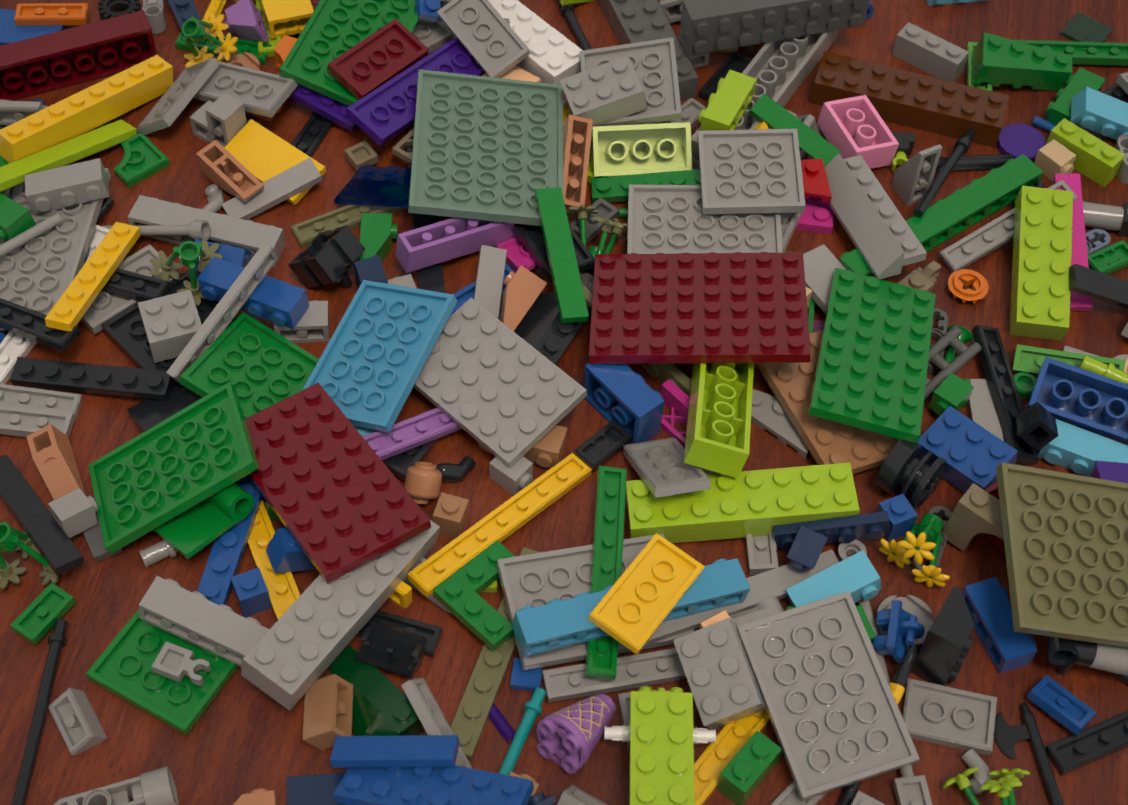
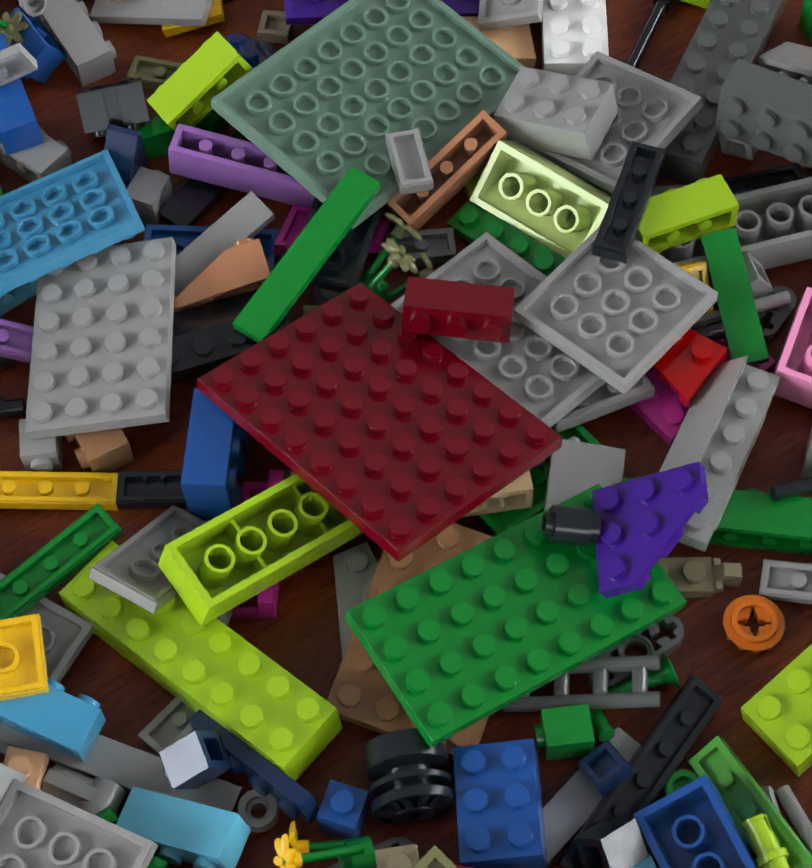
camera: 50 degrees right, 5 degrees up
(381, 205) = (189, 91): none -> lime brick
(556, 169) = (409, 161): none -> light grey tile
(676, 226) = (458, 309): none -> dark red brick
(704, 112) = (628, 202): none -> black tile
(859, 289) = (571, 525): none -> black brick
(891, 263) = (643, 523): none -> dark purple plate
(987, 398) = (605, 767): none -> dark blue tile

